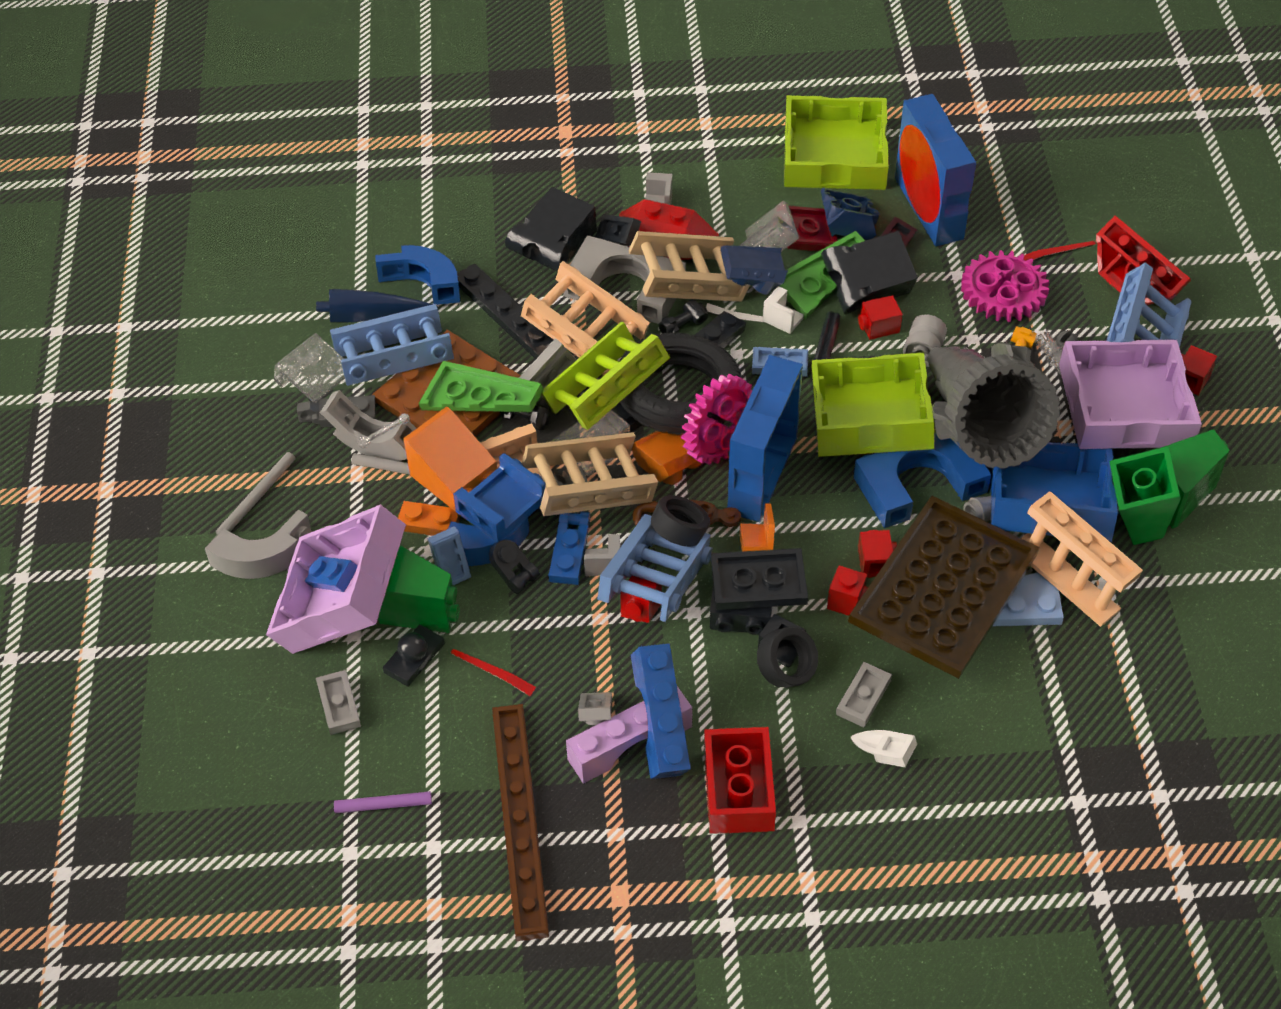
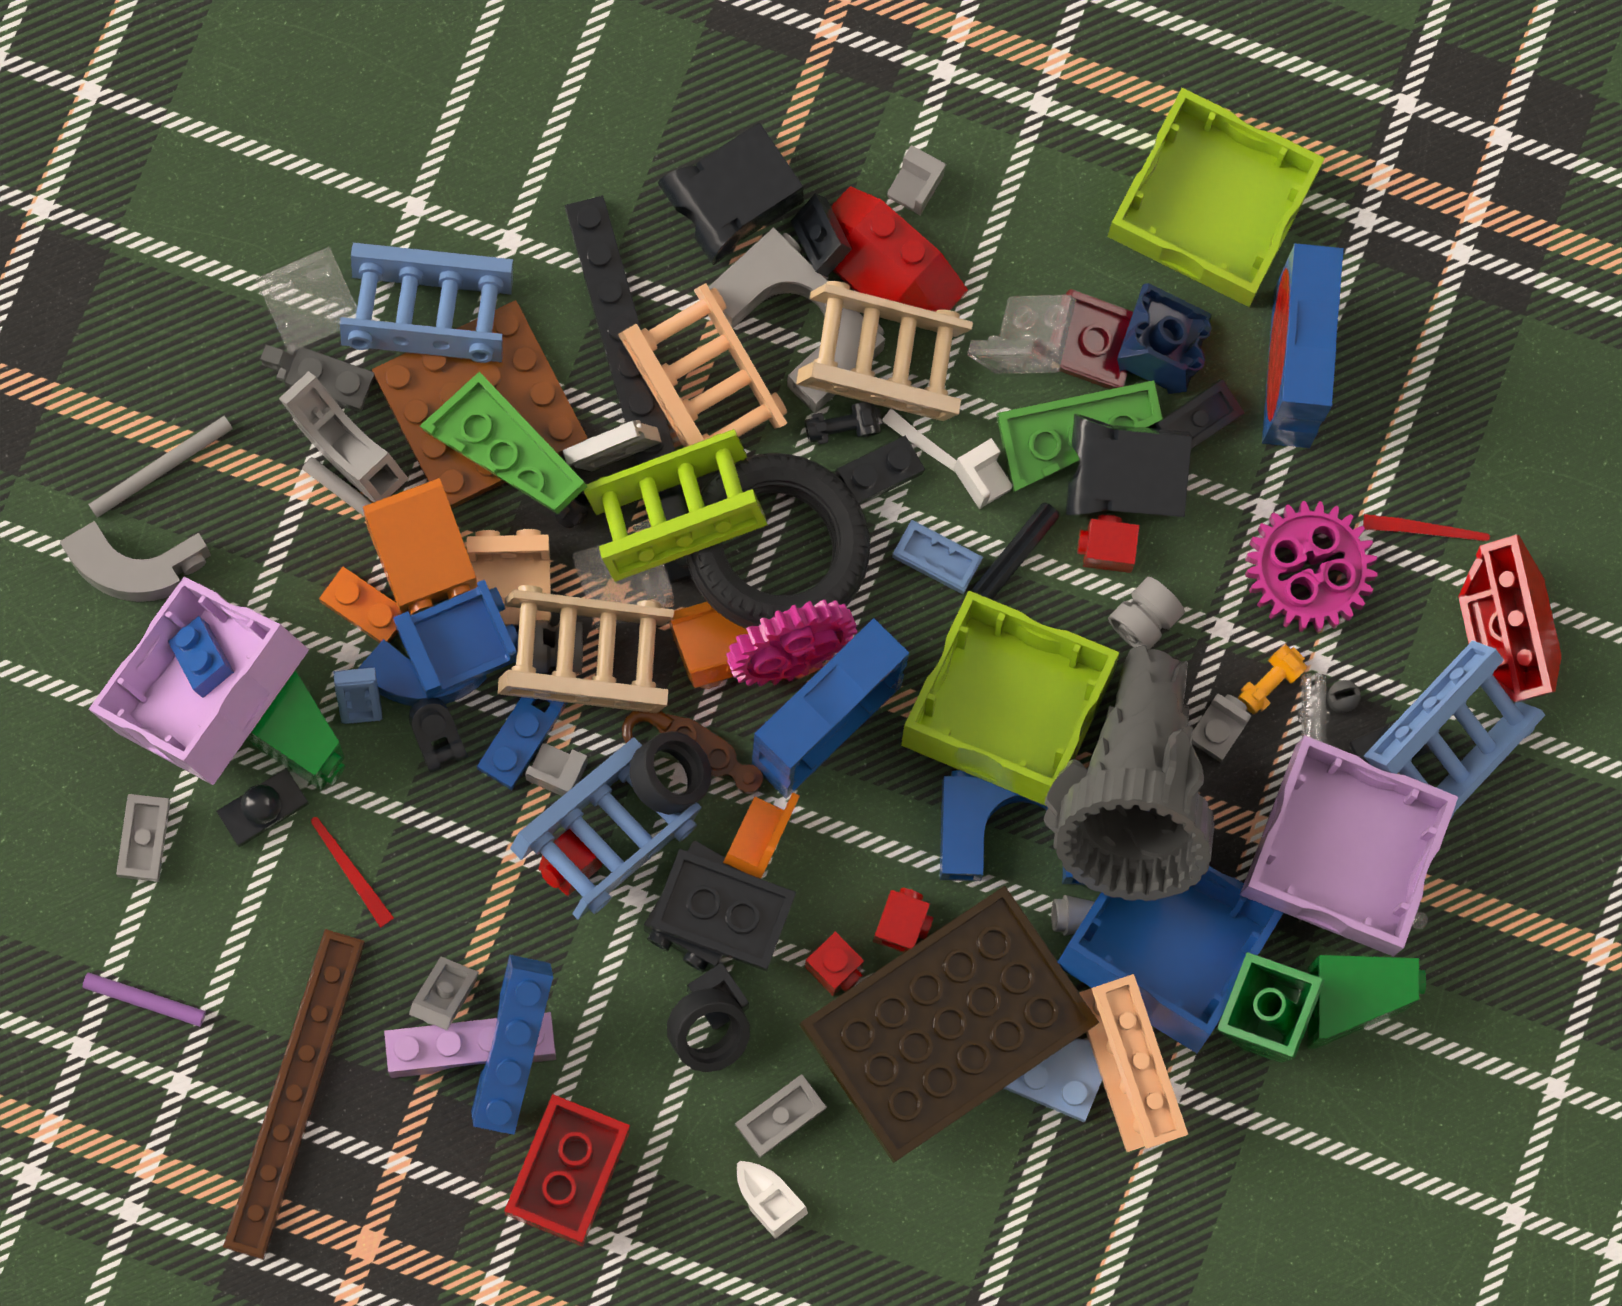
camera: 15 degrees right, 25 degrees up
(364, 305) = (427, 209): dark blue piece -> none
(364, 441) = (324, 458): clear hinge -> none
(421, 265) = (534, 175): blue arch -> none
(754, 266) = (971, 393): dark blue slope -> none
(1198, 368) = (1483, 823): red brick -> none

